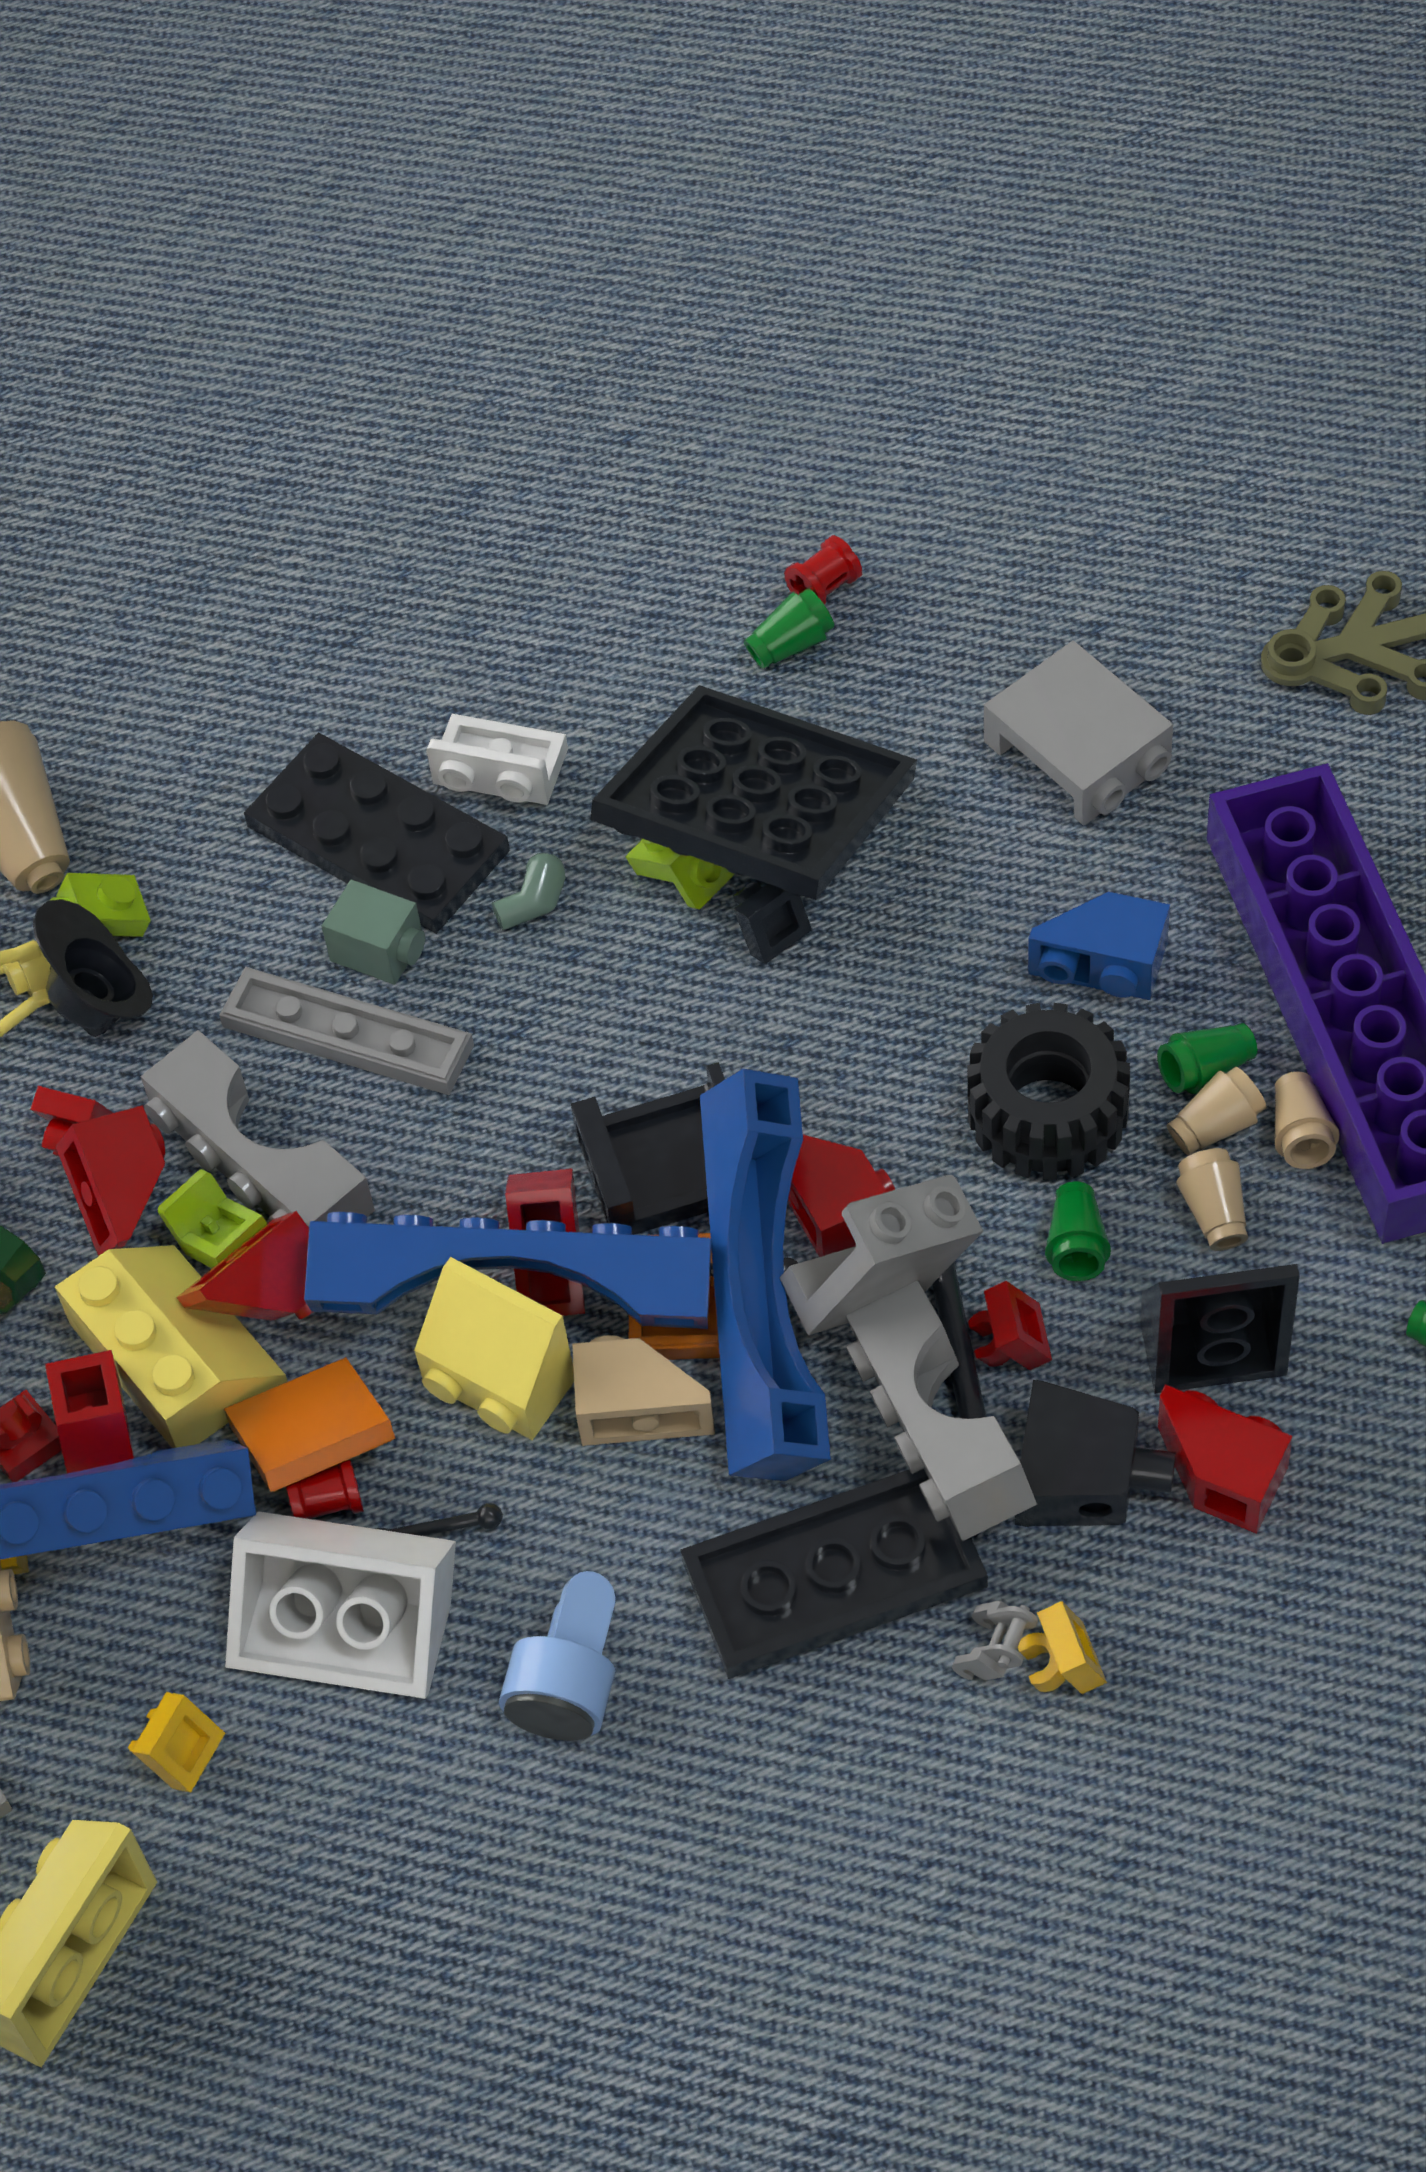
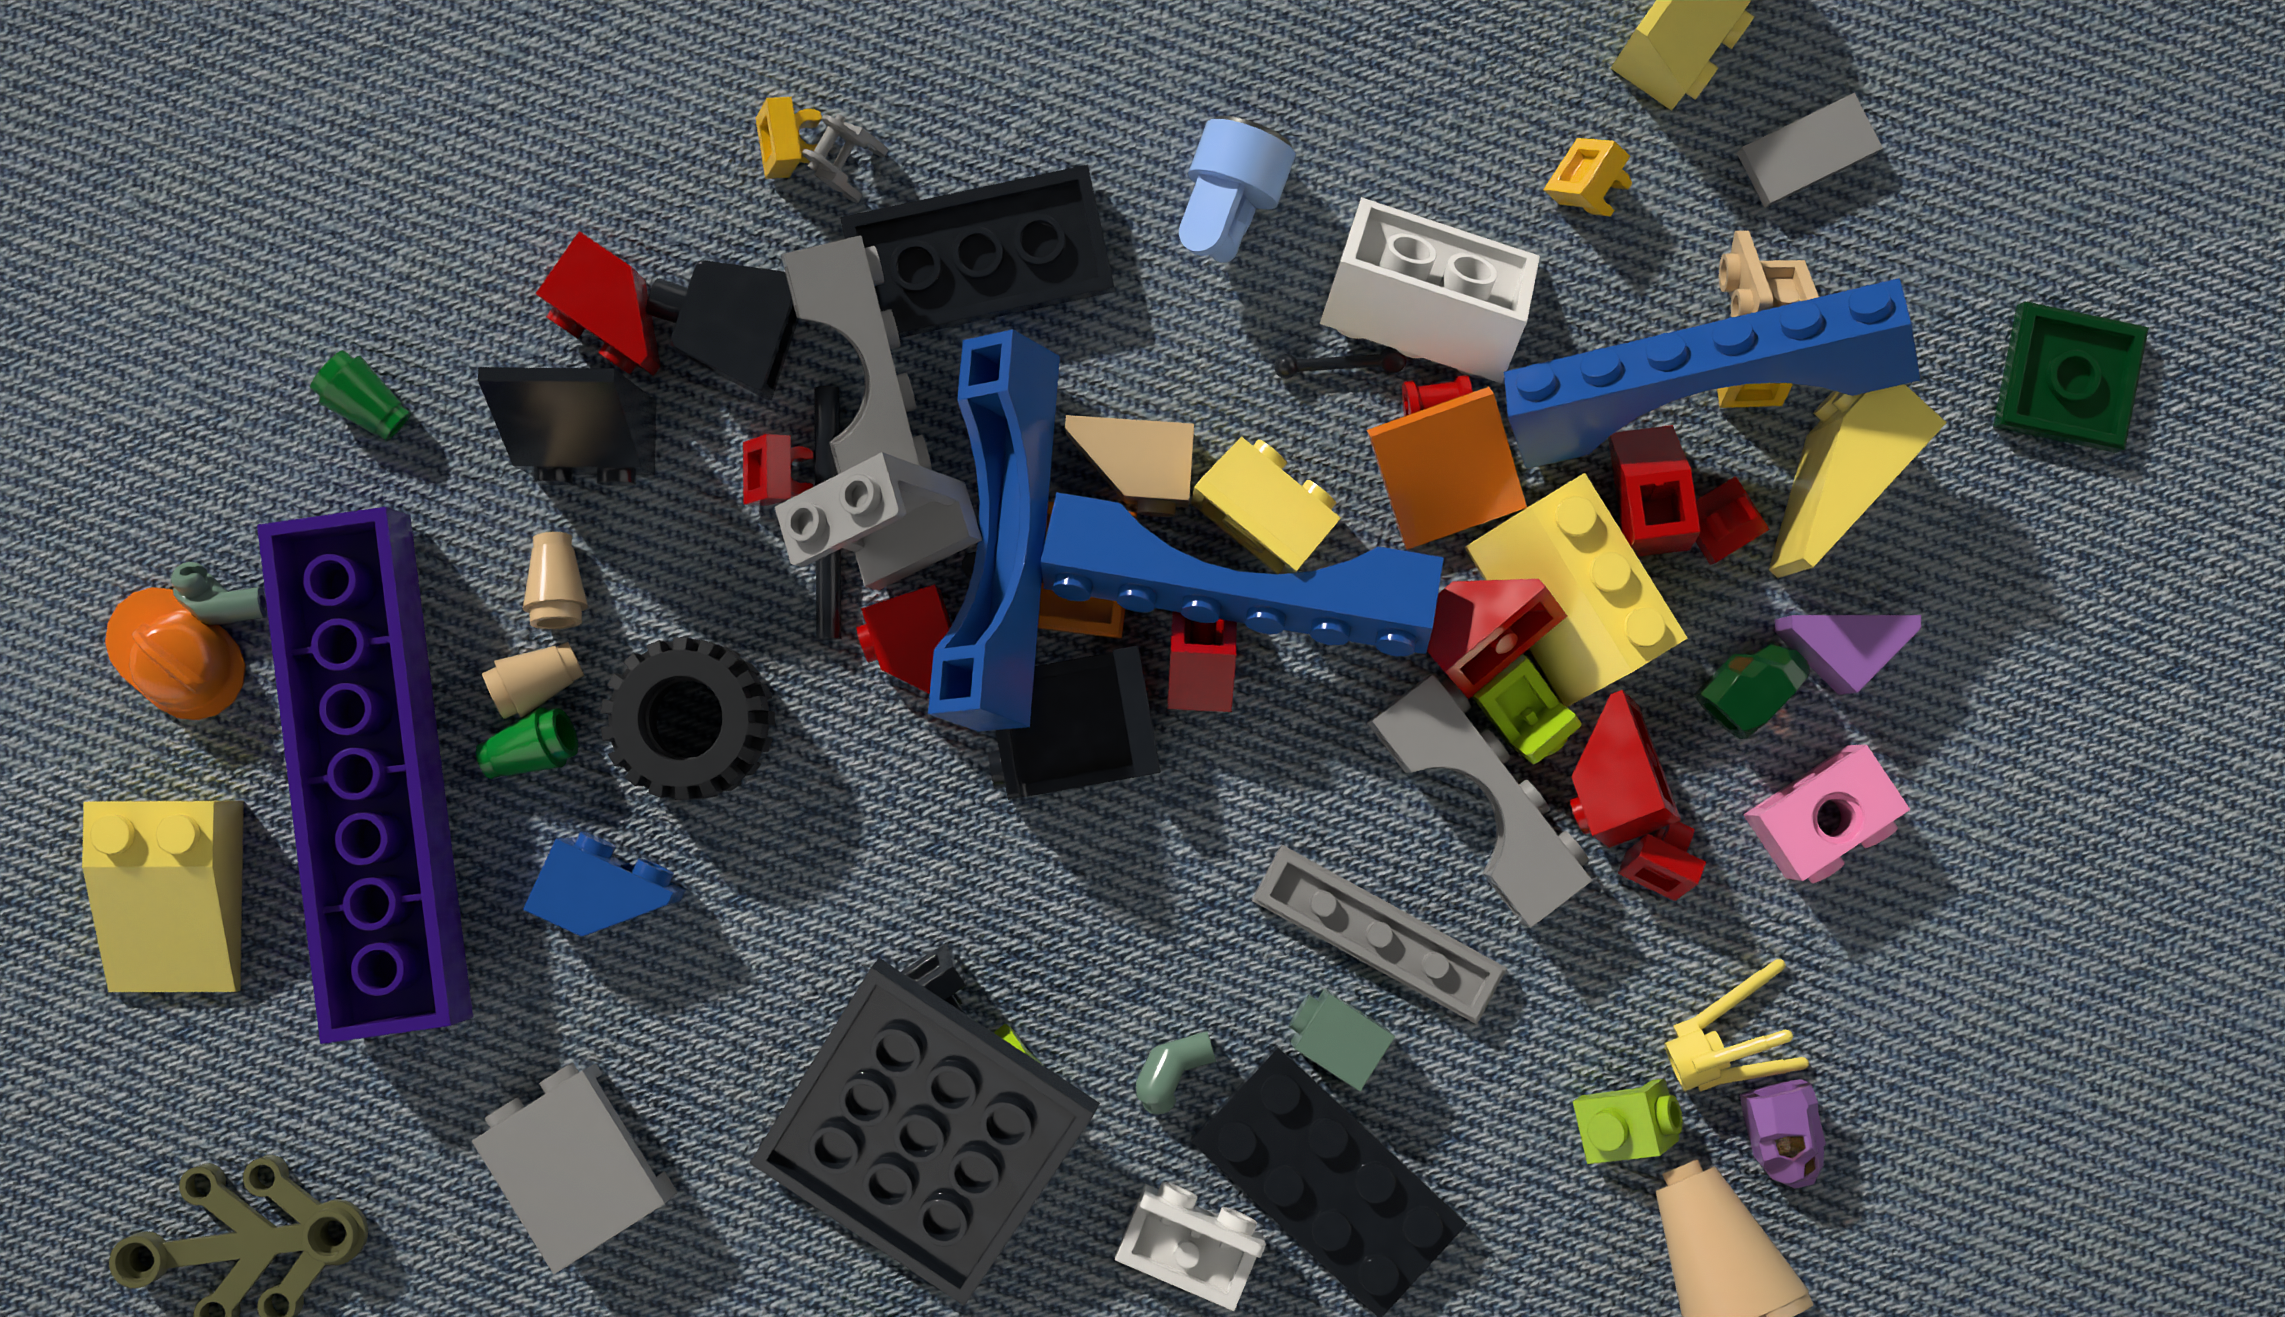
camera: 175 degrees left, 30 degrees up
(89, 971) = (1639, 1031): black piece -> none
(1077, 1234) = (692, 568): green cone -> none
(1303, 1123) = (452, 655): tan cone -> none

